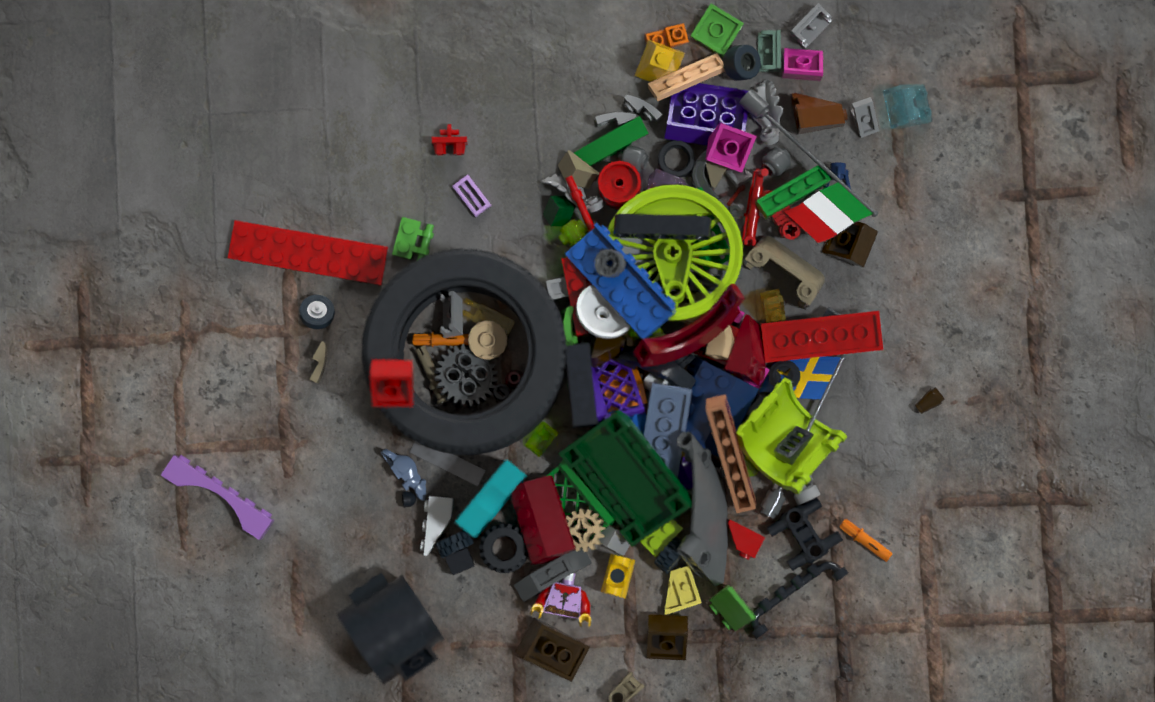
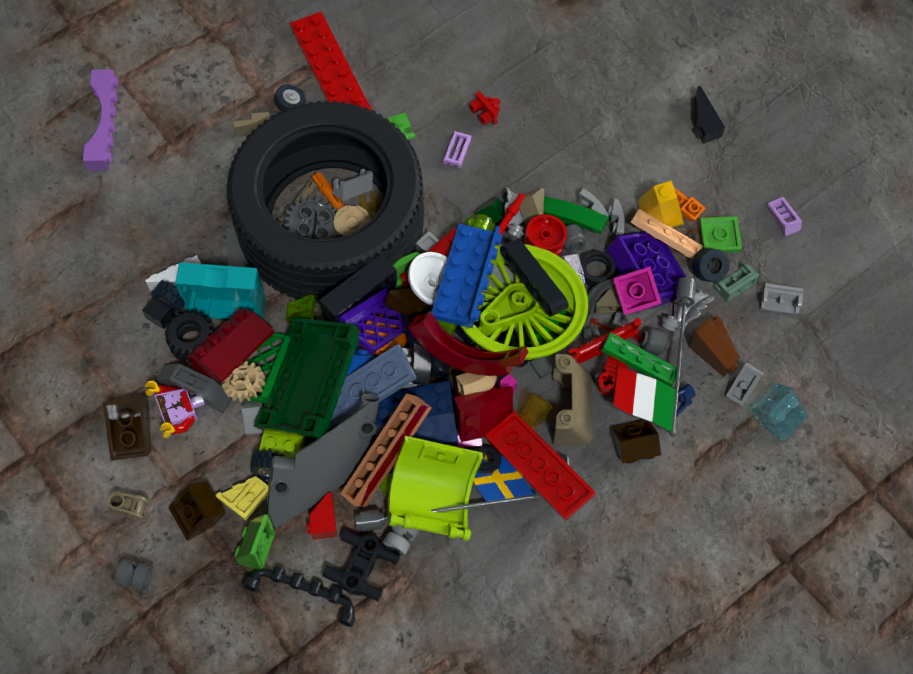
camera: 50 degrees right, 20 degrees down
(390, 628) = (63, 284): black cylinder -> none
(392, 383) = (259, 144): red slope -> none
(405, 468) = (208, 230): sand blue animal -> none
(408, 499) = (185, 246): black hinge -> none
(604, 269) = (474, 251): dark grey wheel -> none
(618, 576) = (223, 438): yellow piece -> none
(790, 458) = (425, 498): black slope -> none
(802, 64) = (745, 313): dark pink slope -> none
(864, 539) = (391, 624): orange axle -> none
(930, 400) = (553, 595): dark brown cone -> none

